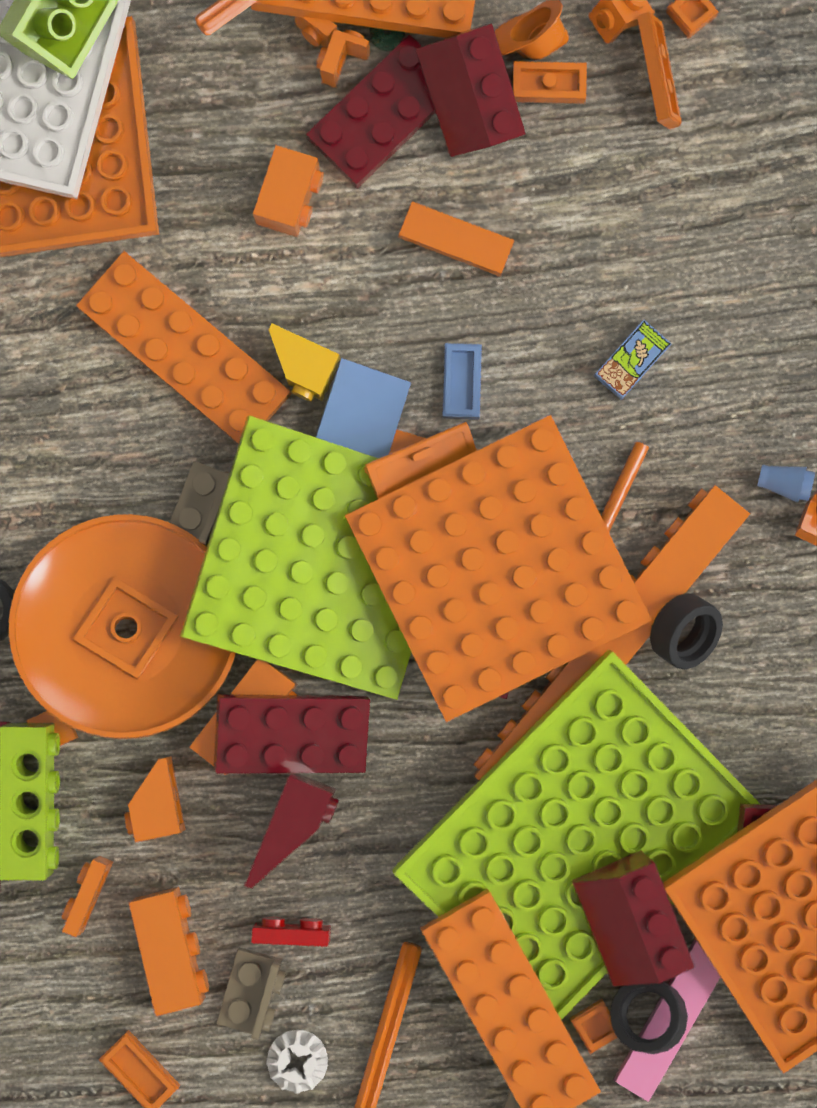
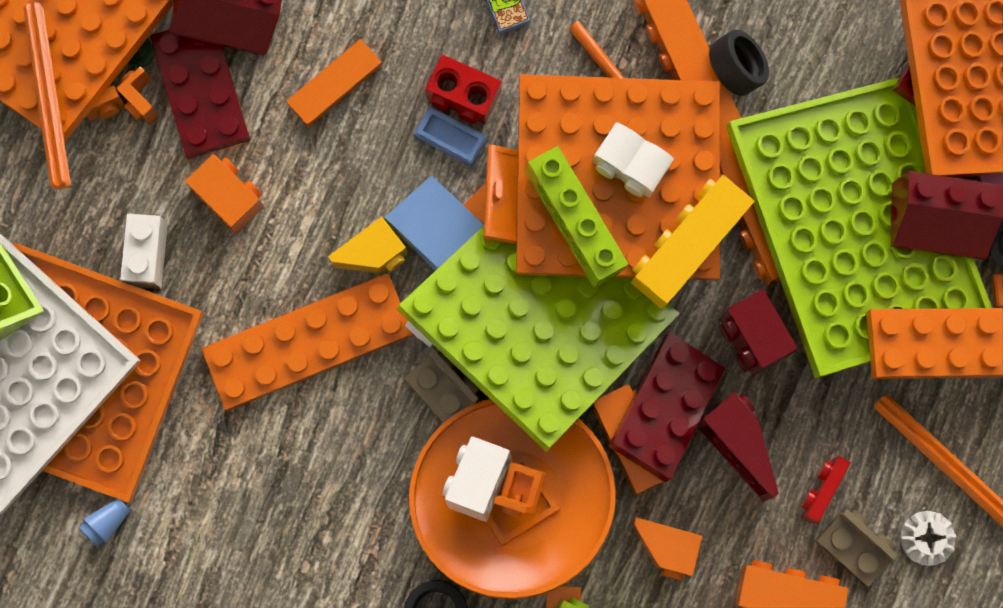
camera: 70 degrees left, 5 degrees down
(120, 582) = (477, 478): none -> white brick
(128, 630) = (520, 490): none -> orange bracket
(188, 144) = (144, 251): none -> white brick
(410, 789) = (756, 333): none -> dark red brick
(426, 544) = (575, 216): none -> lime brick
(461, 674) = (692, 241): none -> yellow brick
(516, 572) = (632, 160): none -> white brick
(522, 368) = (467, 82): none -> red brick

